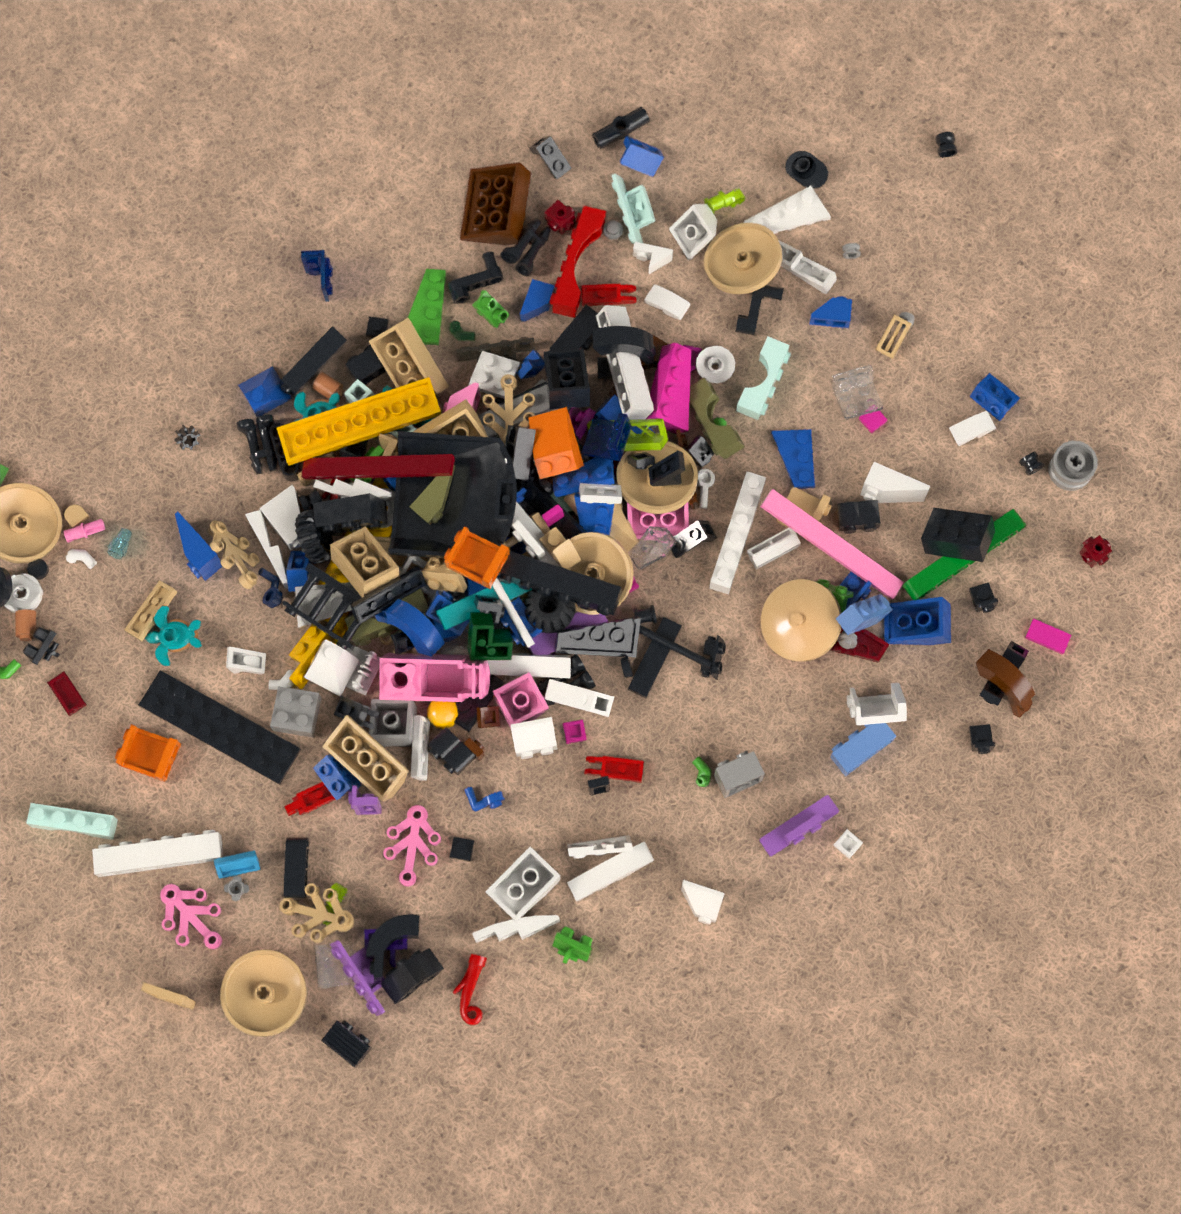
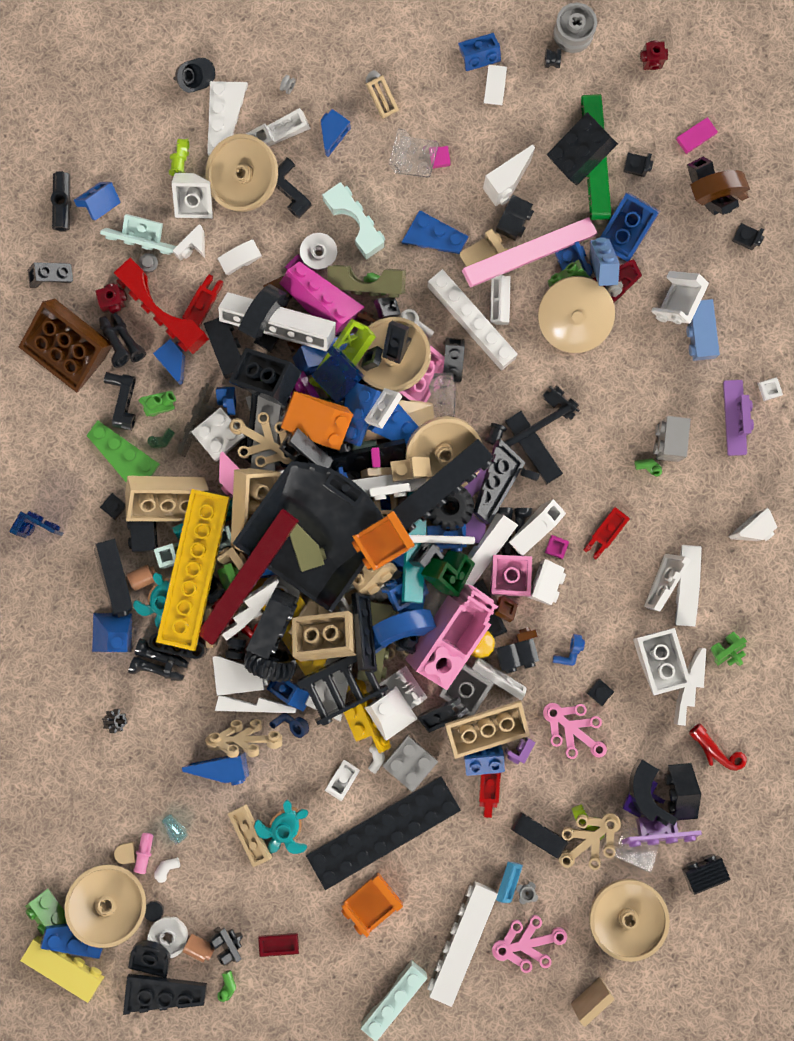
camera: 65 degrees left, 10 degrees up
(598, 785) = (617, 554): black tile -> none

